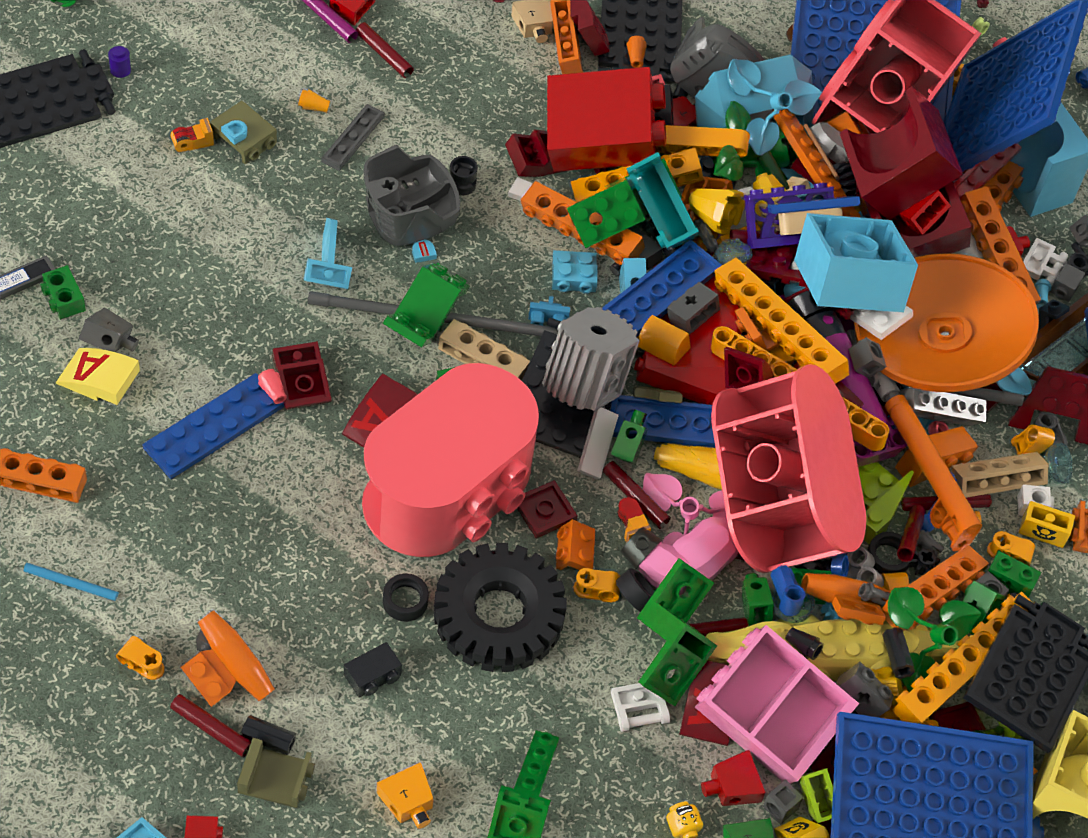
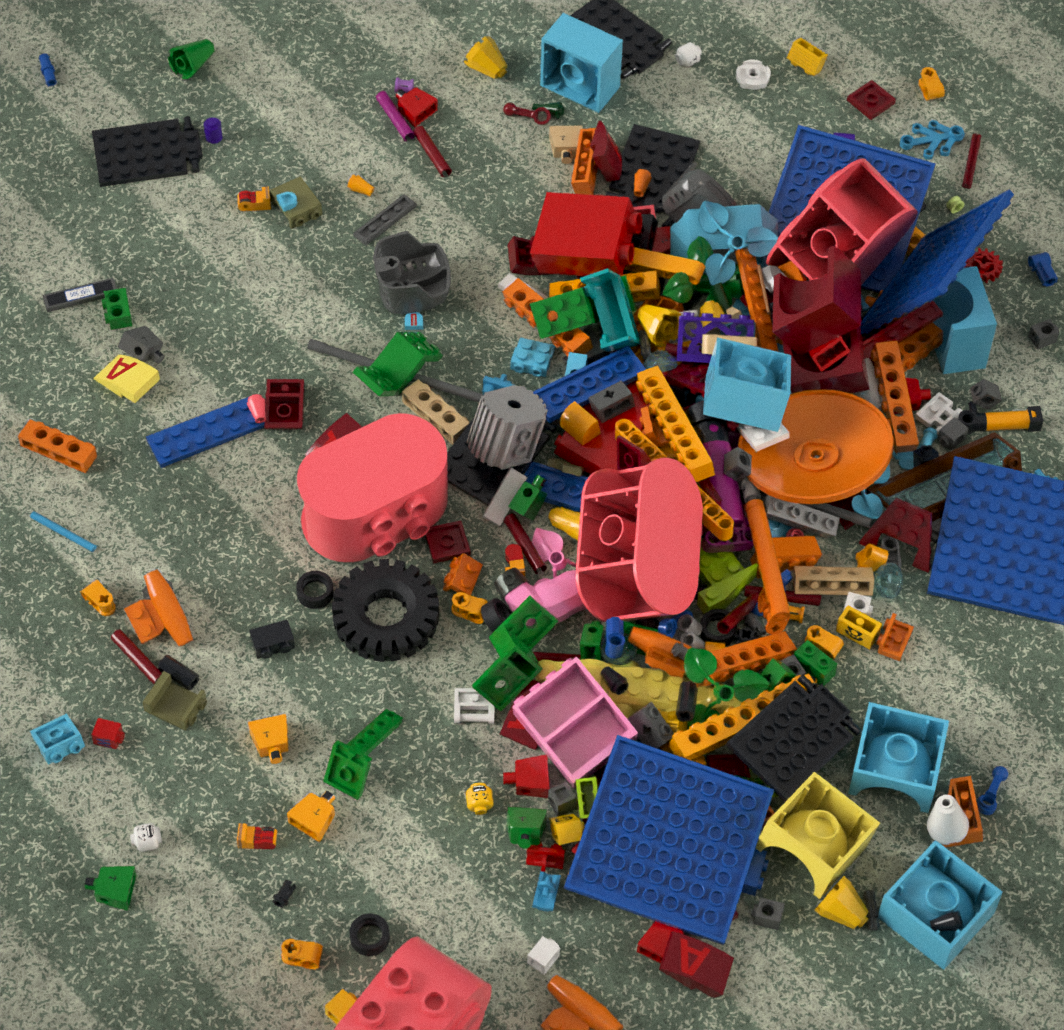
camera: 20 degrees right, 0 degrees up
(326, 271) = (329, 325): medium azure piece -> none
(464, 173) = (463, 264): black wheel -> none
(814, 204) = (734, 332): blue tile -> none

